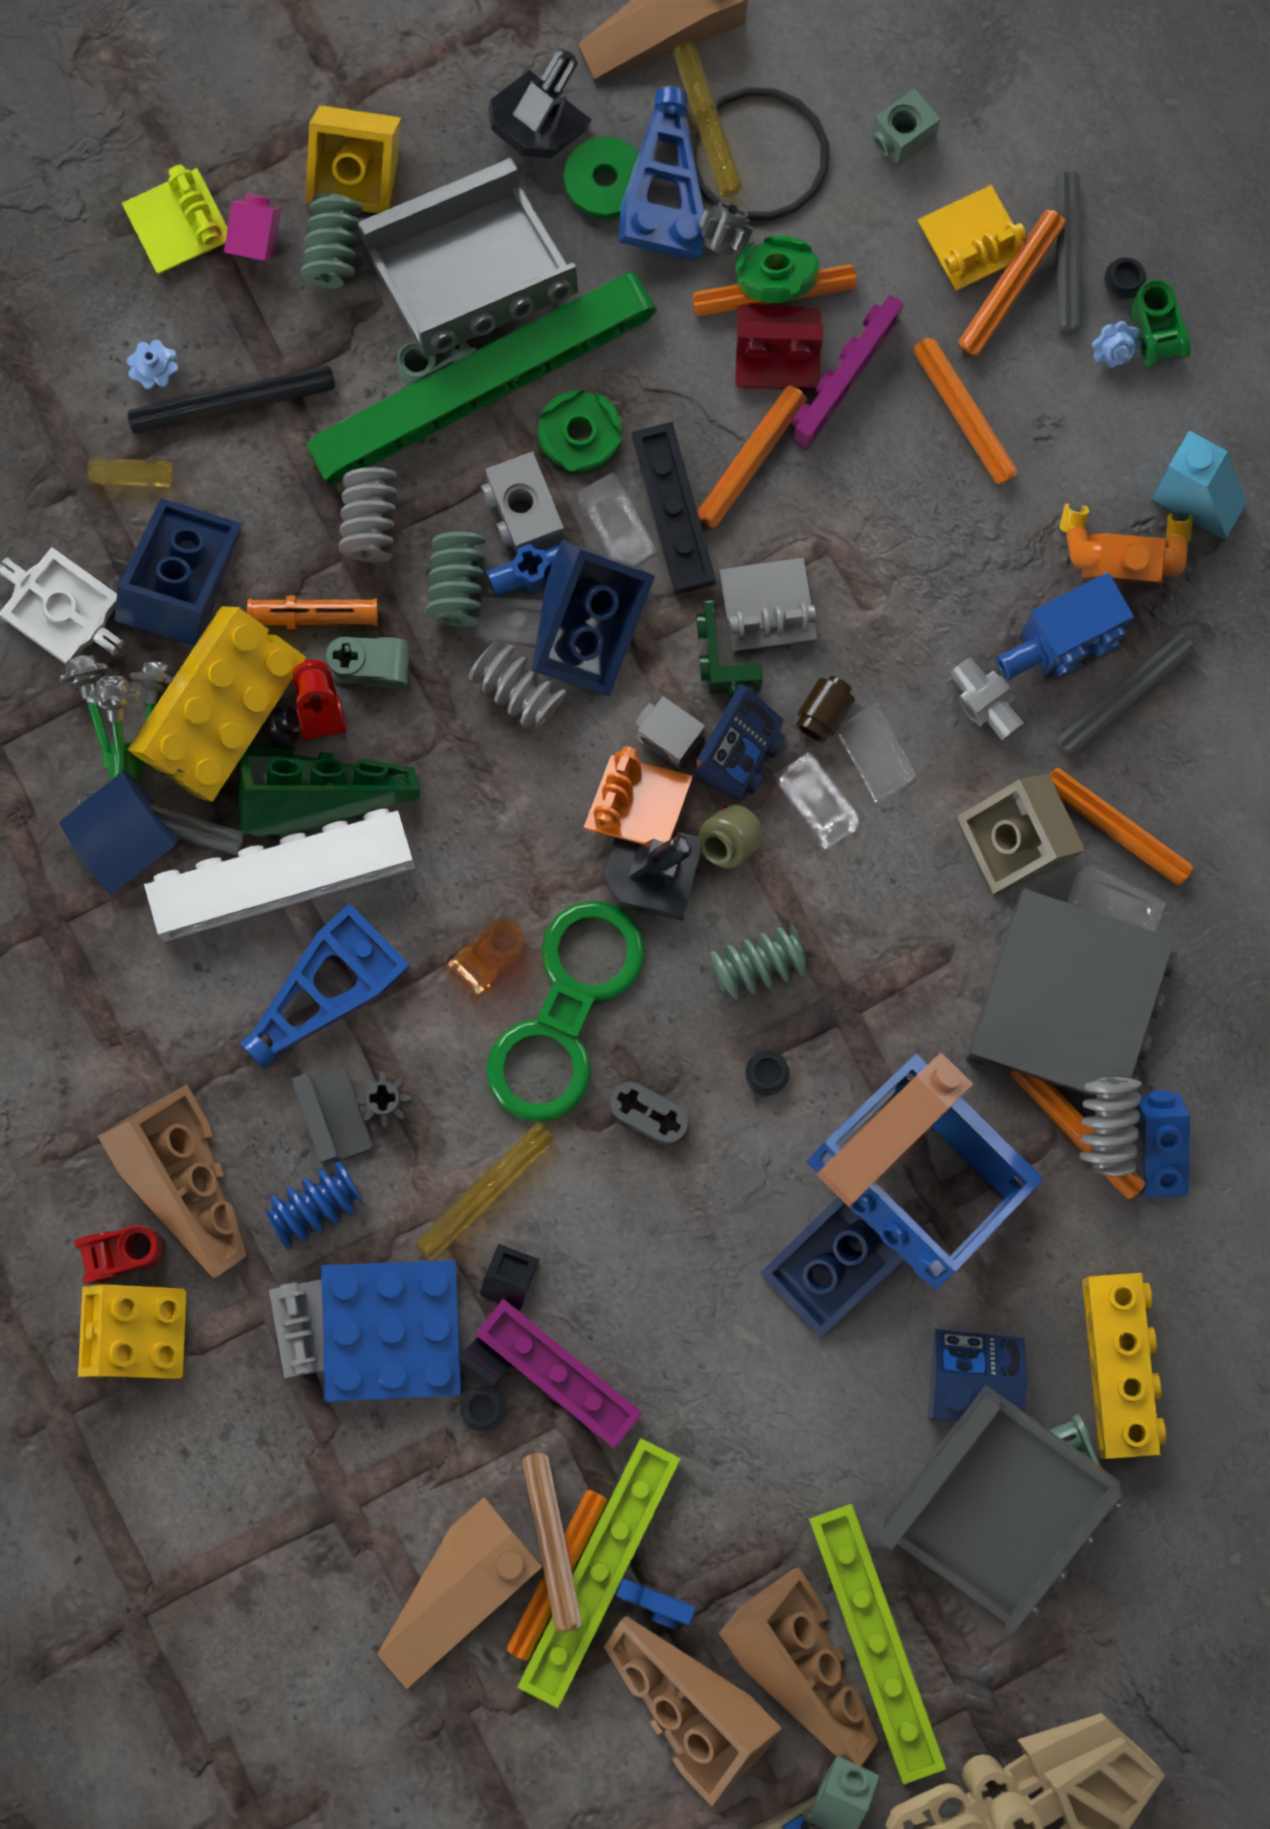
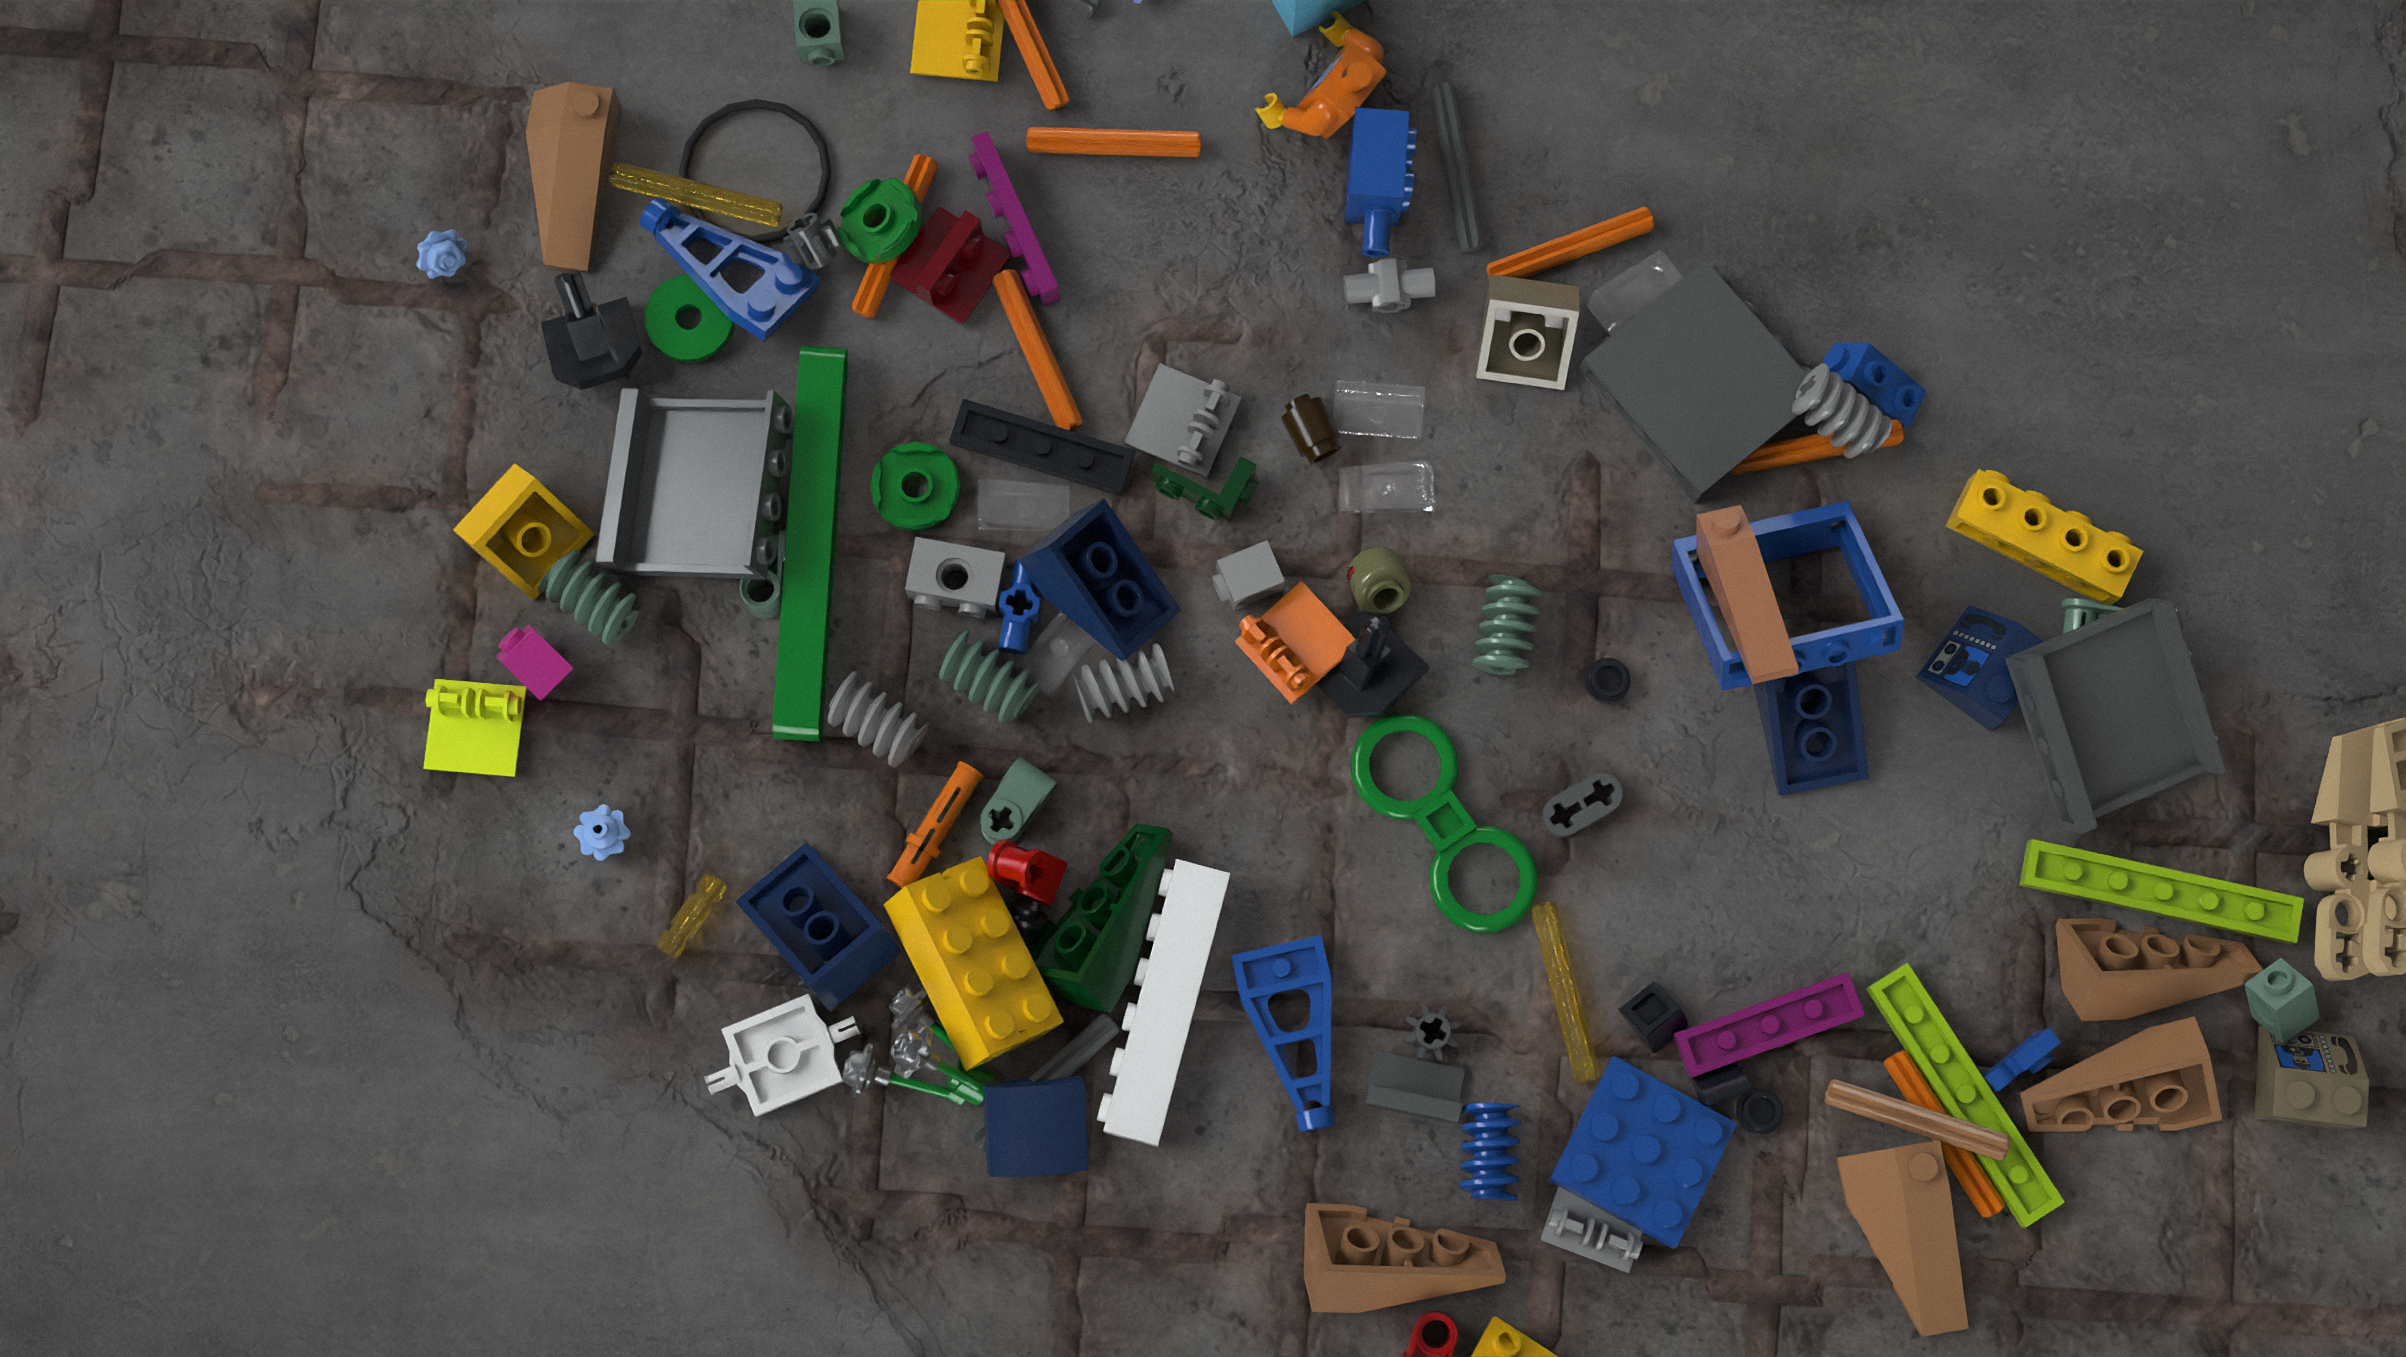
camera: 60 degrees left, 0 degrees up
(231, 399) = (681, 781): black axle -> none
(486, 959) = (1357, 864): clear orange piece -> none
(740, 746) = (1302, 523): dark blue slope -> none

